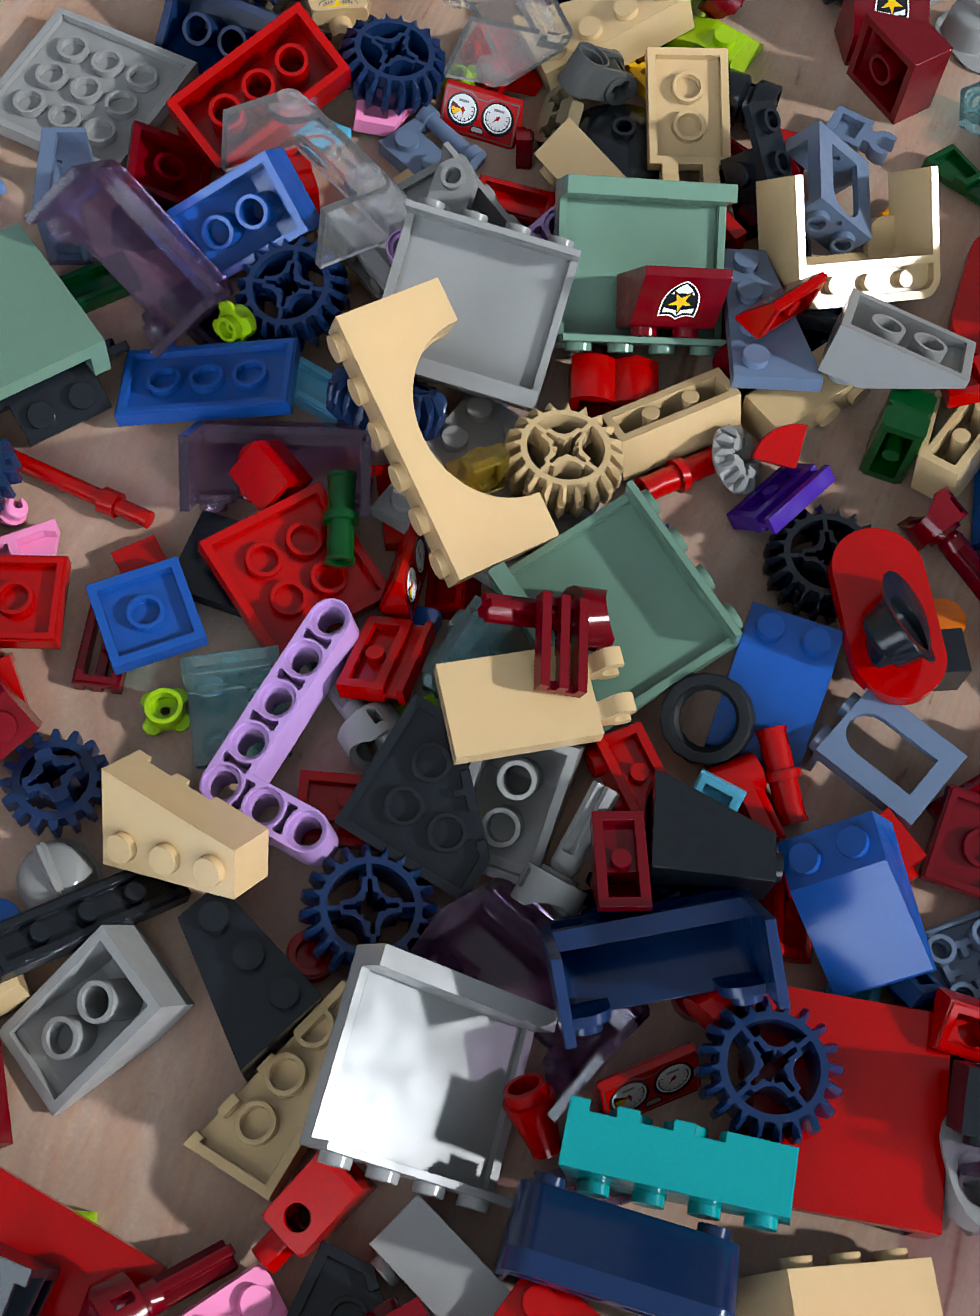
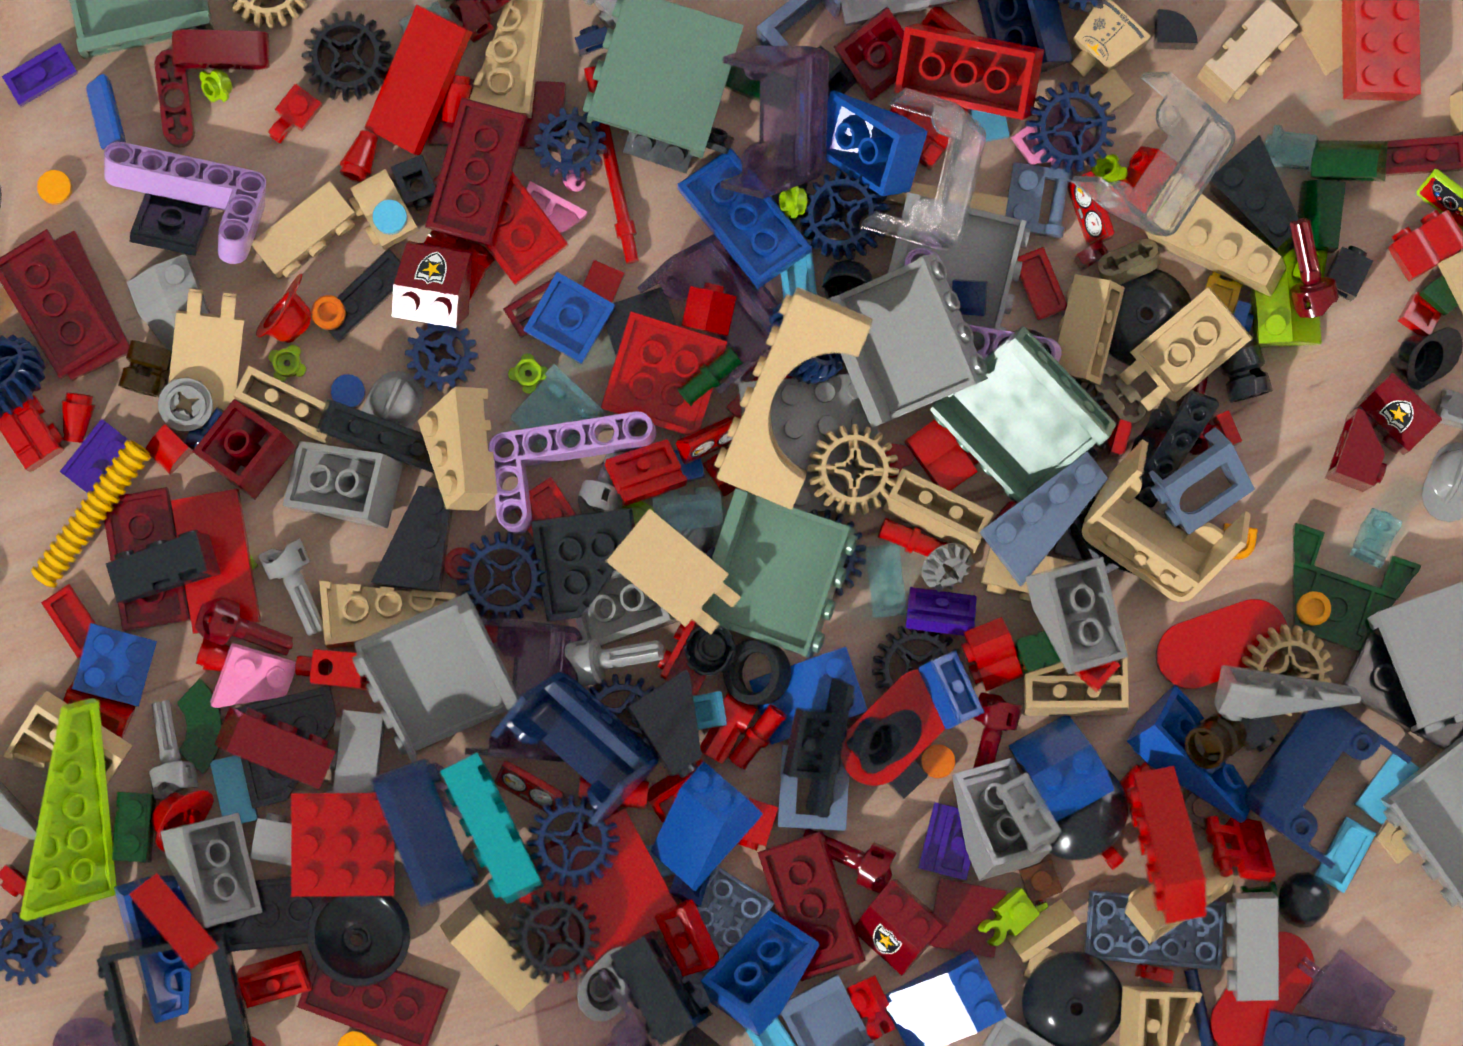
camera: 55 degrees right, 20 degrees up
(129, 1167) = (287, 565): none -> light grey piece
(455, 195) = (983, 257): light grey plate -> none
(482, 468) = (802, 427): clear yellow bracket -> none
(522, 613) = (745, 558): dark red piece -> none
(527, 1105) = (468, 733): red cone -> none
(579, 644) = (721, 576): dark red tile -> none
(597, 75) = (1177, 268): dark grey piece -> none
(620, 861) = (619, 688): dark red slope -> none
(648, 742) = (709, 652): none -> black hair
(670, 299) = (1009, 450): dark red slope -> none
(708, 537) = (885, 580): none -> clear light blue slope
(781, 305) = (1053, 520): red slope -> none
(781, 446) = (970, 588): red tile -> none
(855, 701) = (817, 745): none -> black bracket
(858, 134) = (1282, 458): sand blue plate -> none
(867, 1150) = (546, 950): none -> black gear
(868, 475) = (992, 655): none -> red brick
(886, 531) = (950, 690): none -> blue slope

